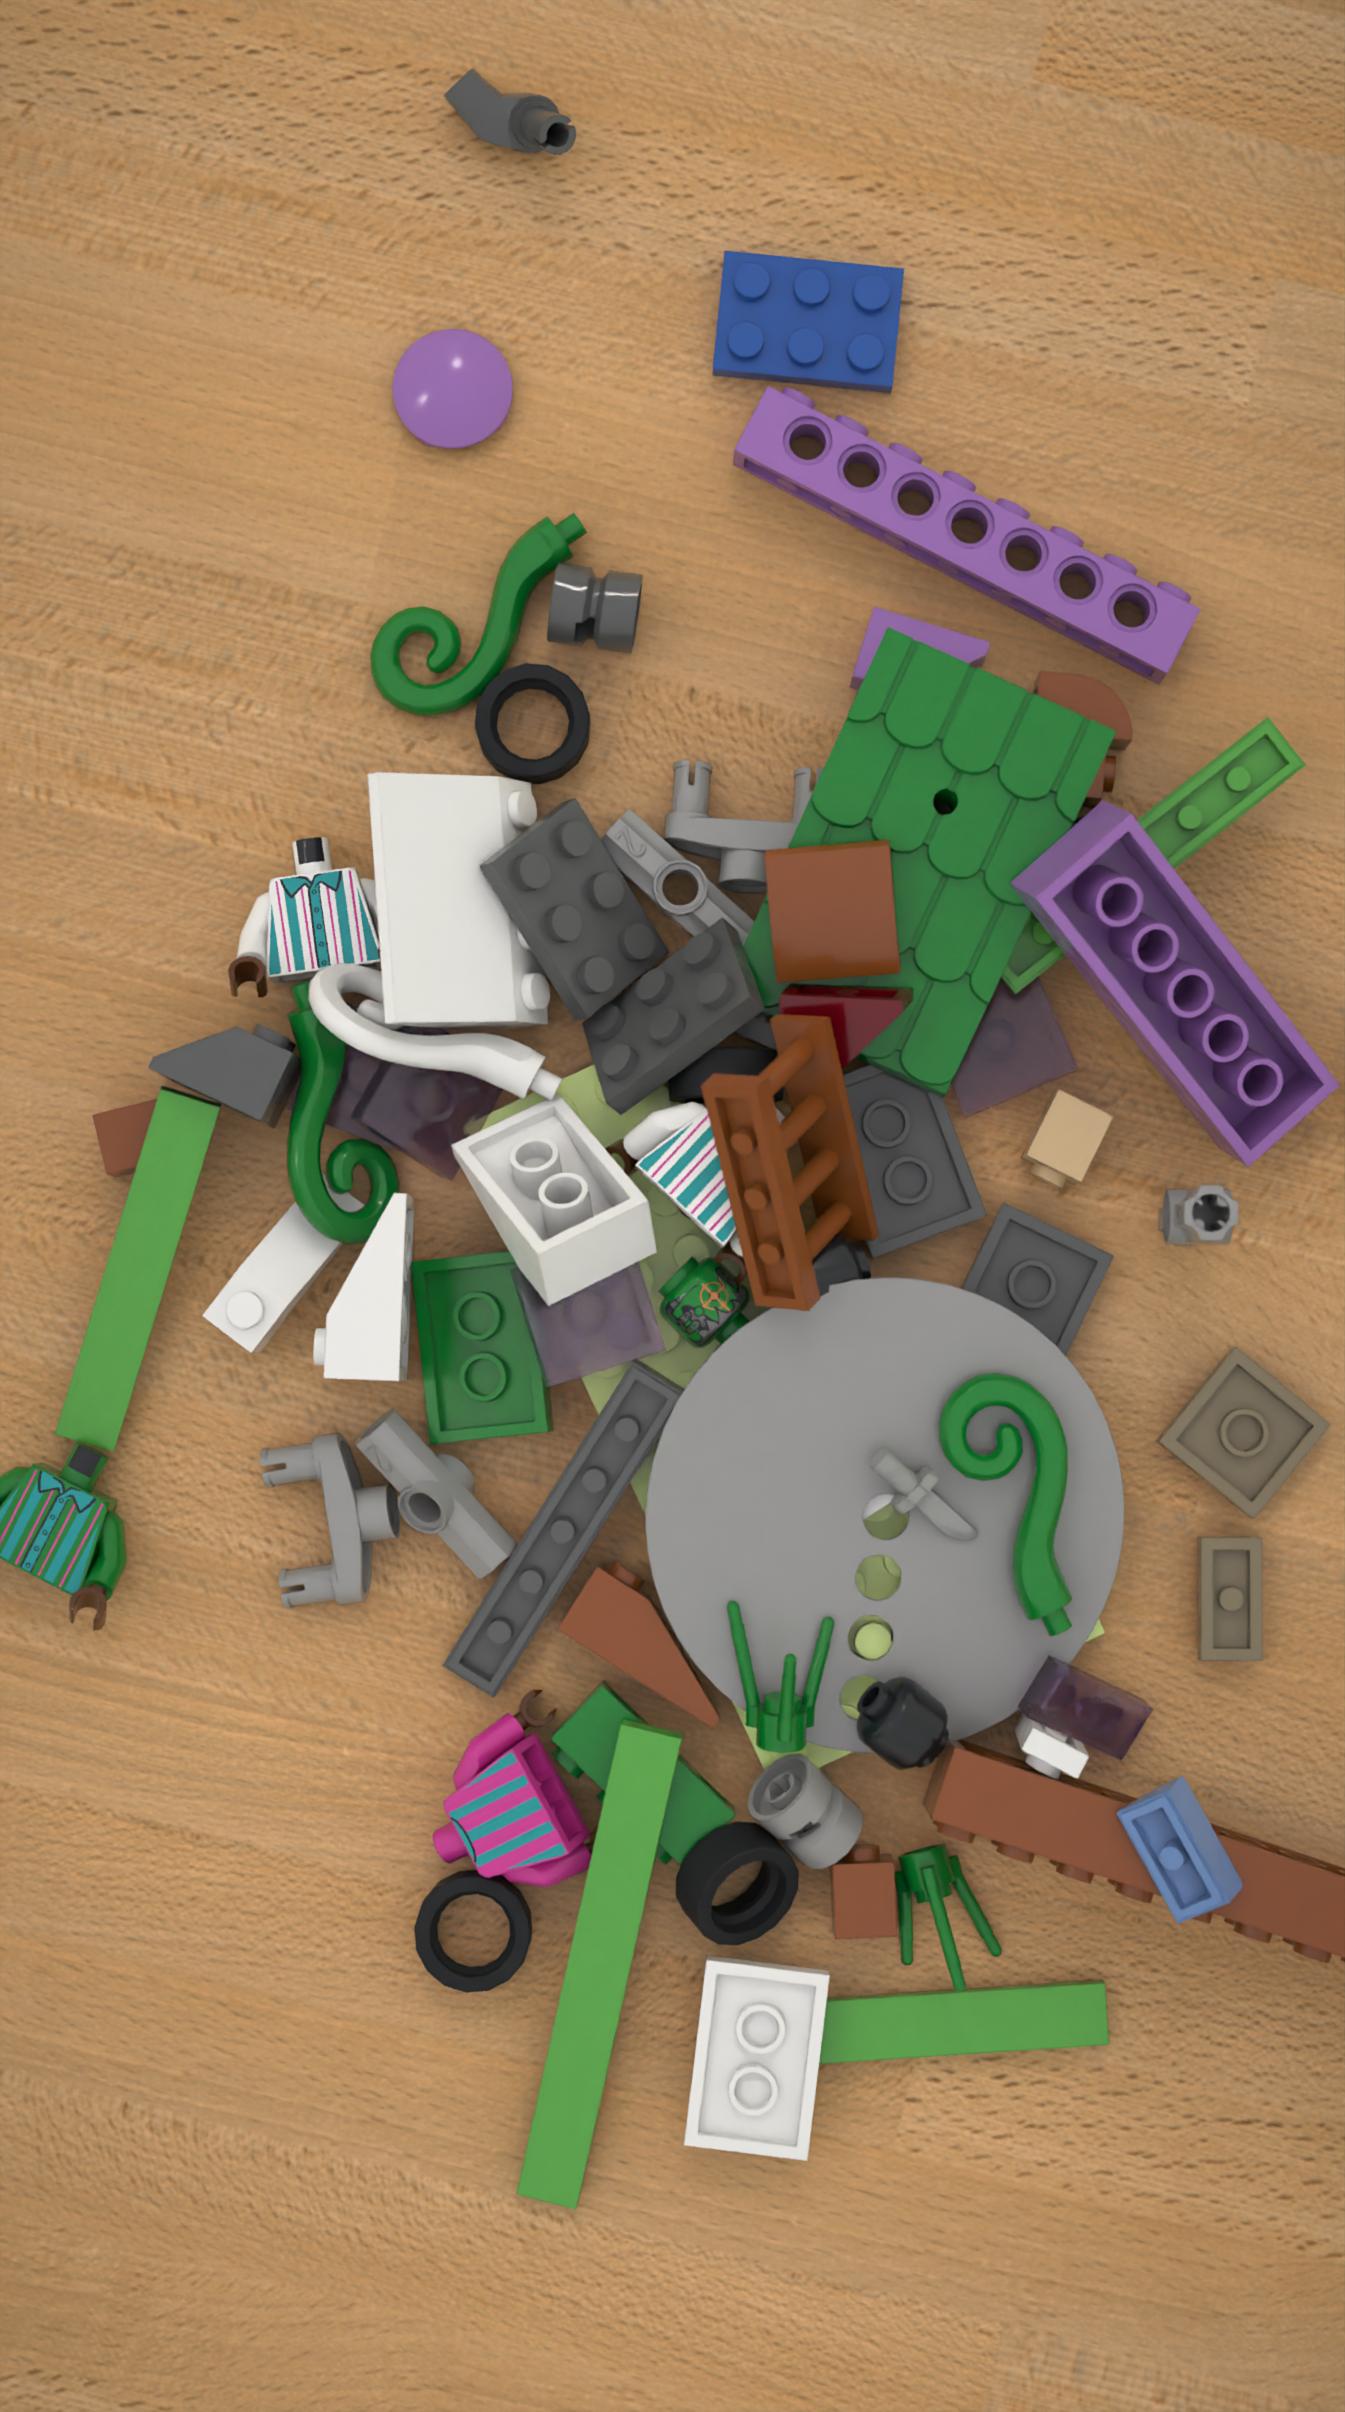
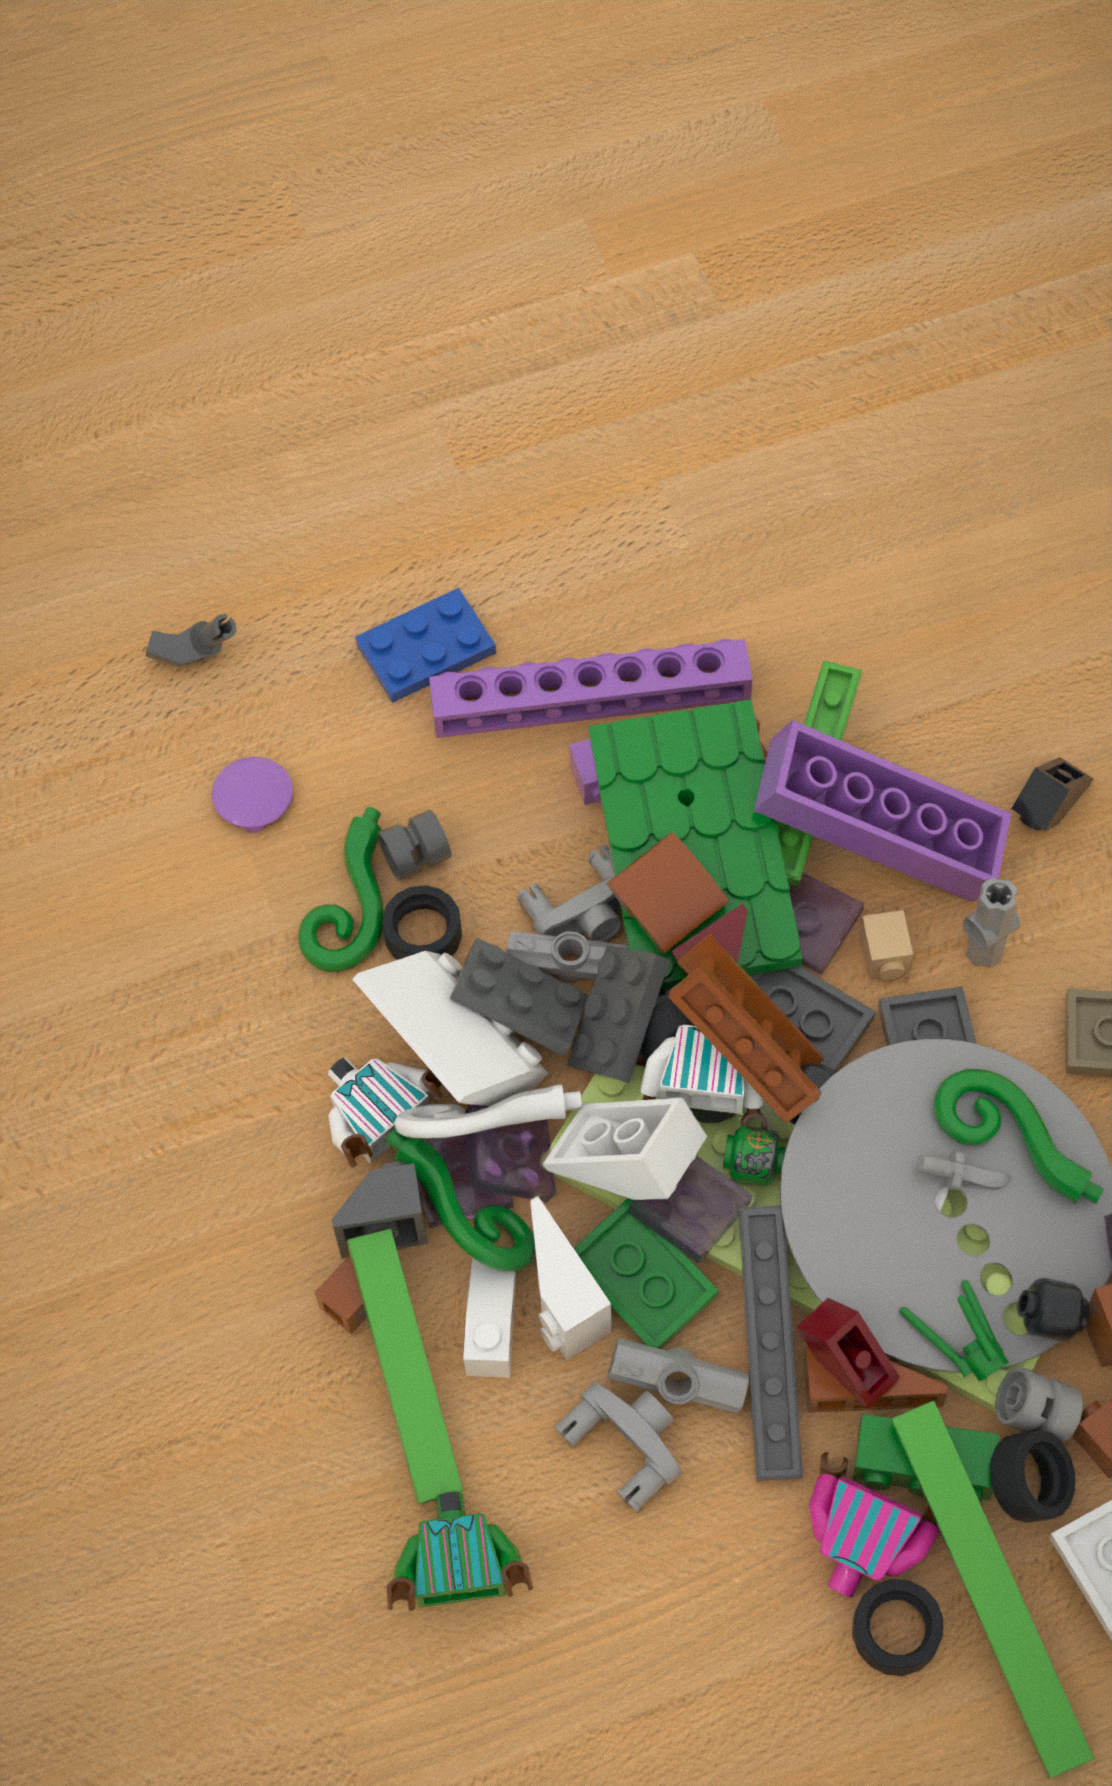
camera: 30 degrees left, 25 degrees down
(630, 1613) = (848, 1350): none -> dark red slope

